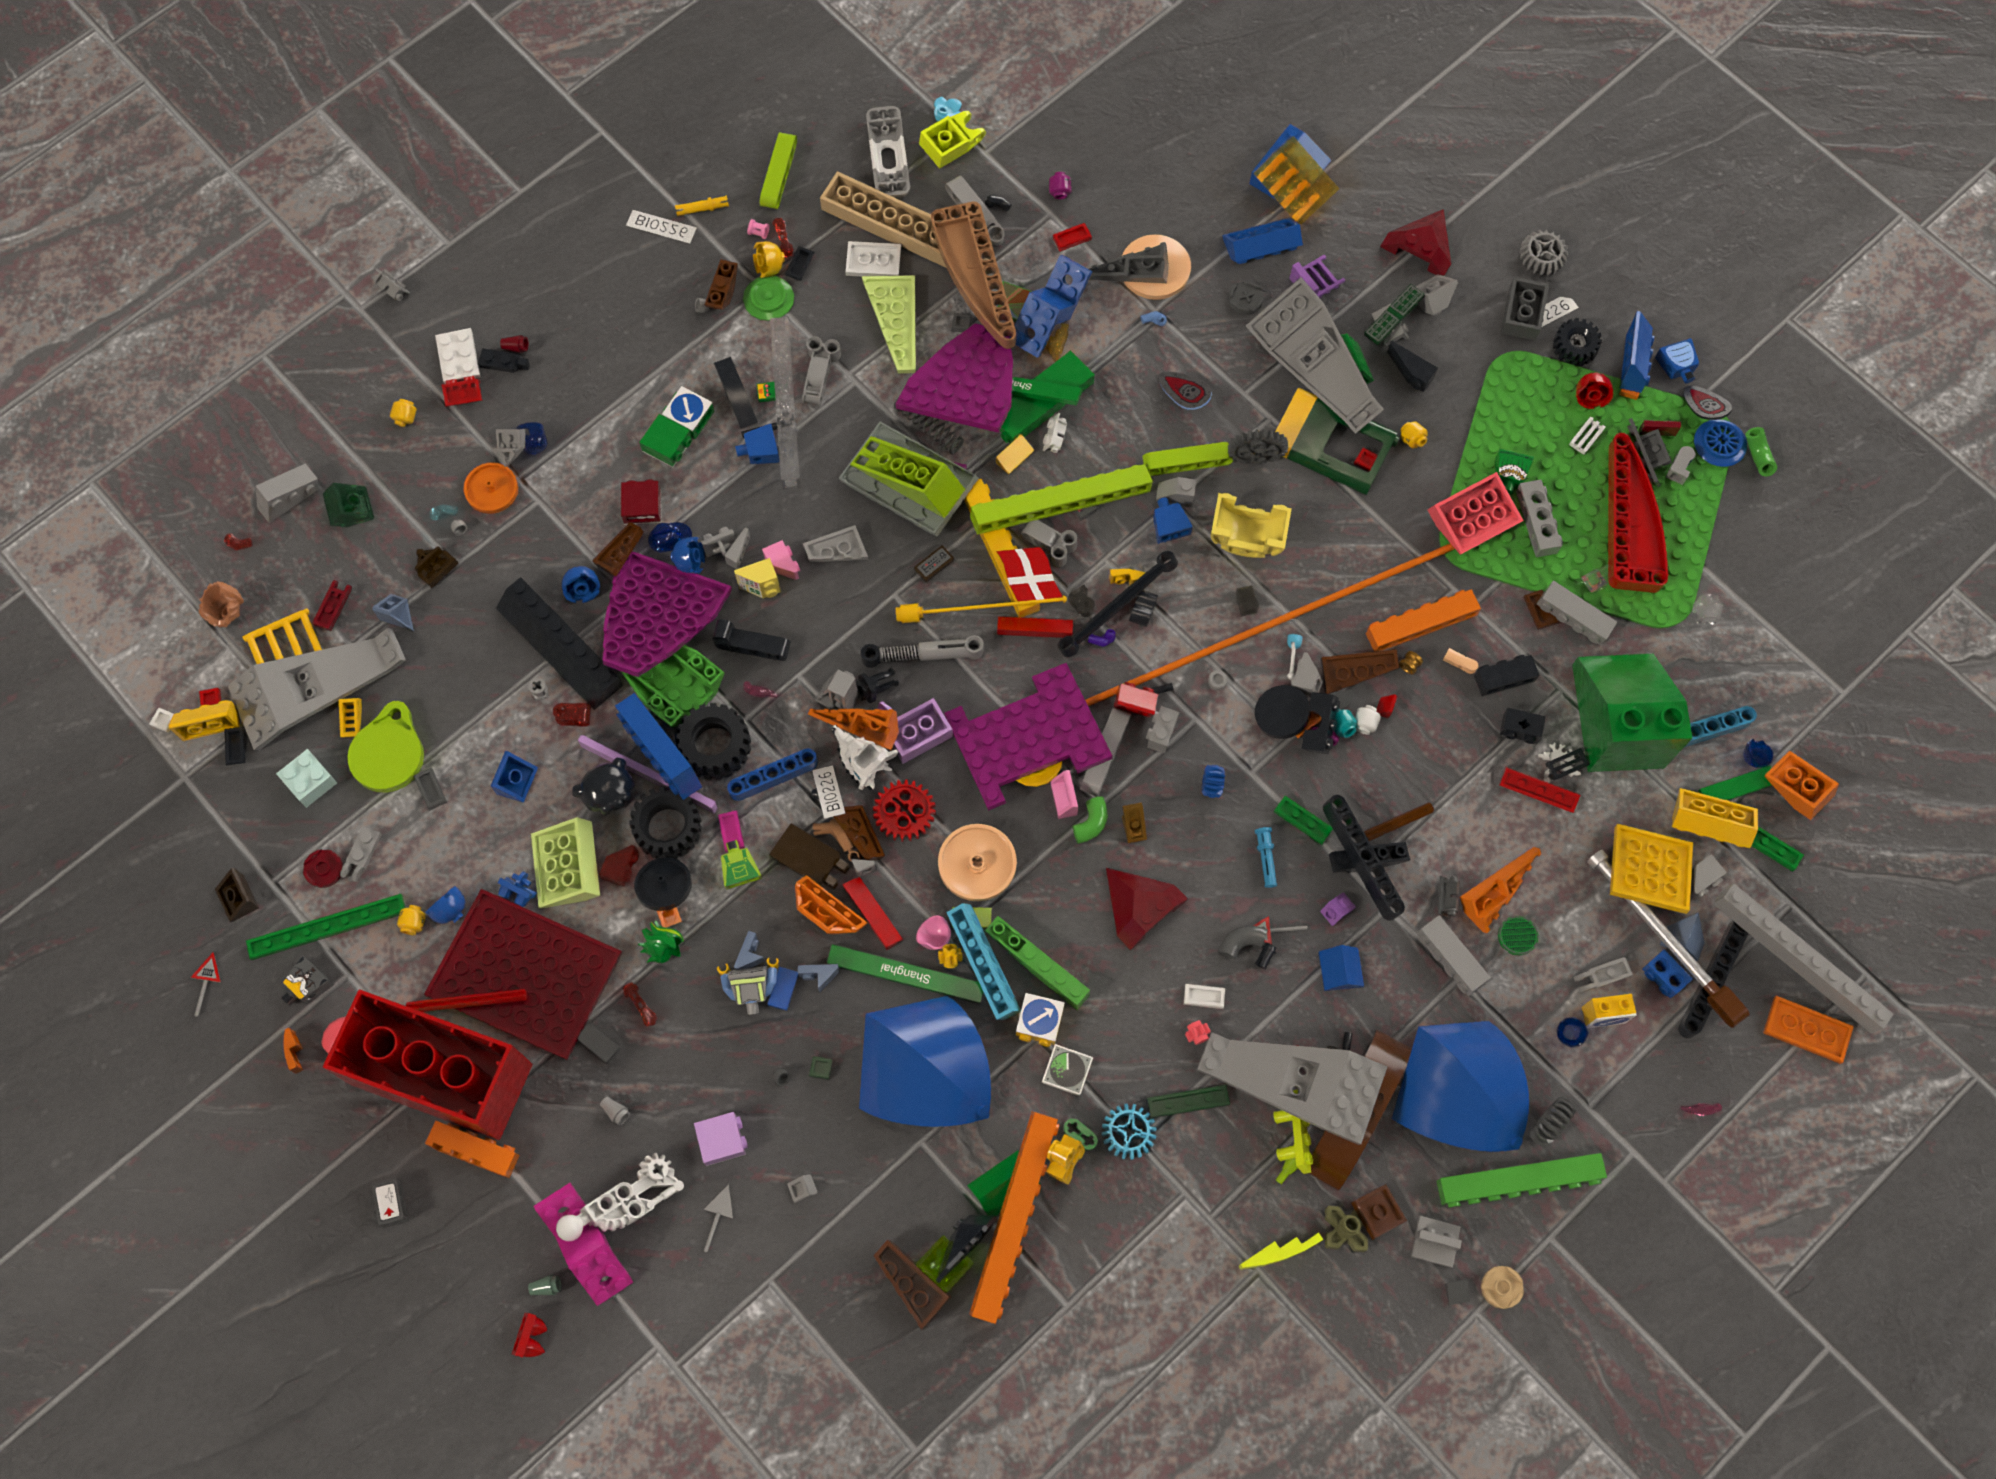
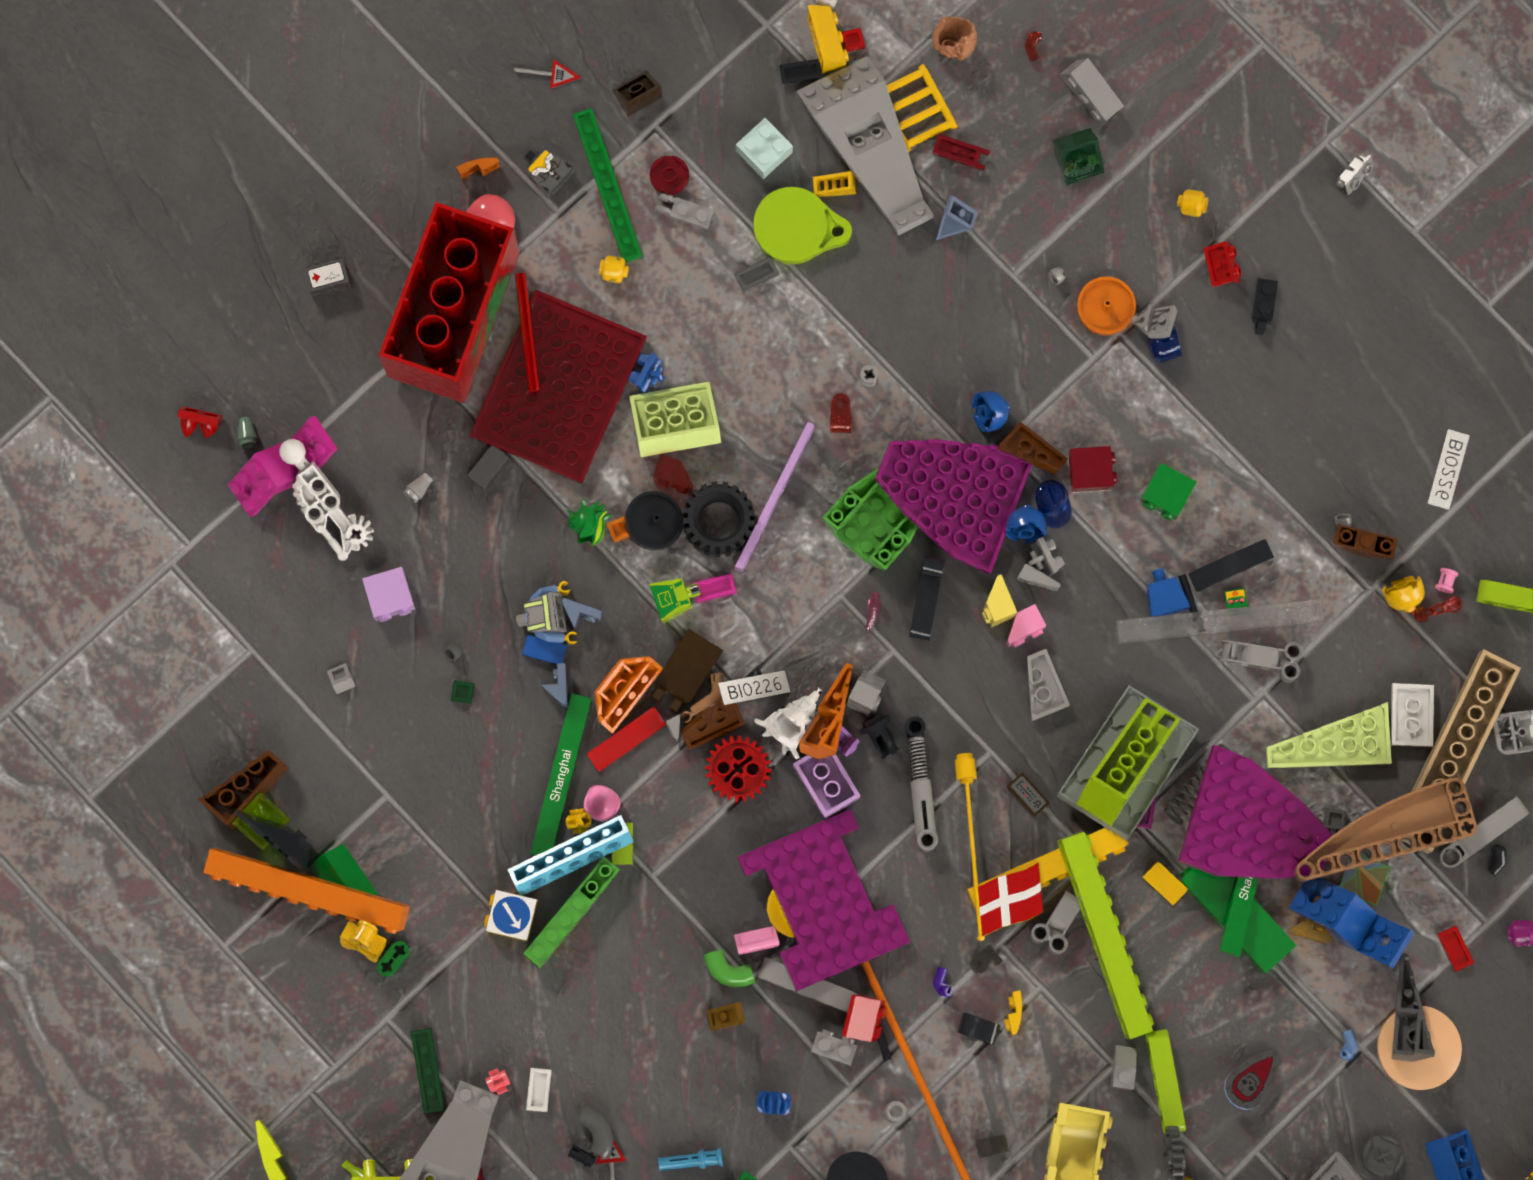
camera: 85 degrees right, 10 degrees up
(434, 565) = (1011, 253): dark brown slope -> none
(442, 509) = (1078, 256): clear light blue arm -> none
(448, 907) = (626, 304): blue cylinder -> none
(457, 355) = (1268, 255): white plate -> none
(472, 1149) = (370, 371): orange wedge -> none
(513, 777) = (768, 359): blue slope -> none
(515, 343) = (1285, 318): dark red cone -> none
(558, 644) = (922, 391): black slope -> none
(605, 787) = (751, 454): black piece -> none
(648, 1016) = (515, 514): clear red piece -> none
(657, 747) = (797, 505): blue brick -> none
(689, 410) = (1204, 513): piece -> none
(702, 205) = (1475, 513): yellow pin -> none
(709, 718) = (814, 536): black tyre -> none
(721, 1206) = (324, 599): light grey piece -> none
(766, 782) = (776, 618): blue beam -> none
(768, 298) = (1358, 597): bright green piece -> none
(799, 263) = (1404, 630): black tile -> none
(924, 1065) = (458, 797): blue panel -> none
(977, 862) = (679, 847): light nougat dish -> none
(1034, 627) = (955, 907): red slope -> none
(1056, 426) = (1184, 925): white hinge -> none
(1067, 1070) = (460, 945): tile -> none
(1117, 604) = (979, 999): black piece -> none
(1138, 1133) = (397, 998): medium azure gear -> none
(1140, 904) = (638, 1023): dark red wedge -> none
(1170, 521) = (1085, 1060): blue torso -> none

